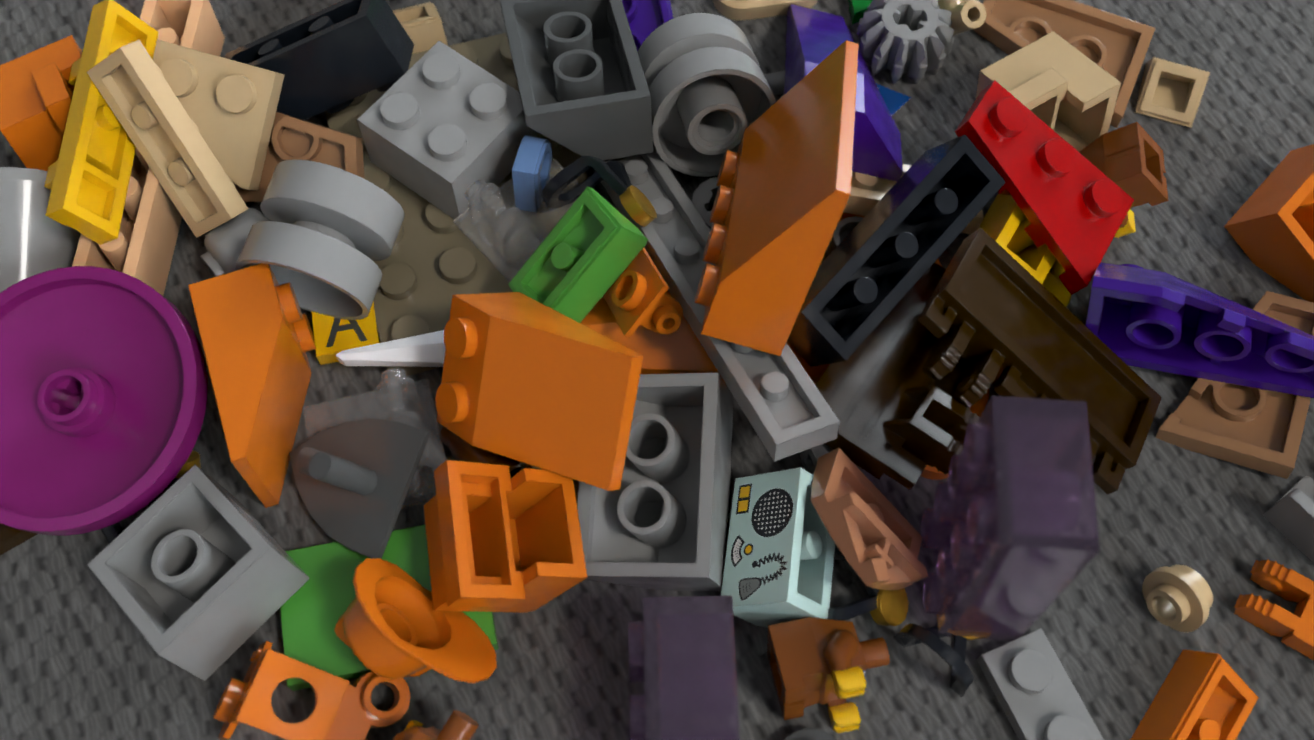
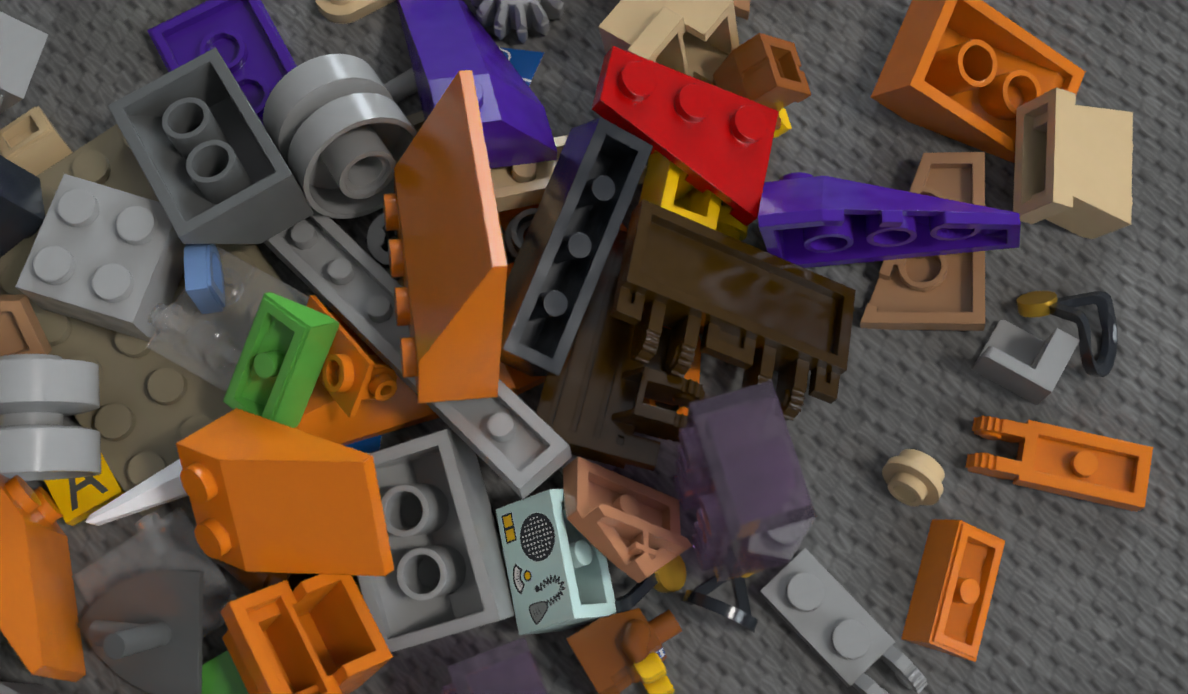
camera: 15 degrees left, 10 degrees up
(613, 173) = (310, 277): black piece -> none

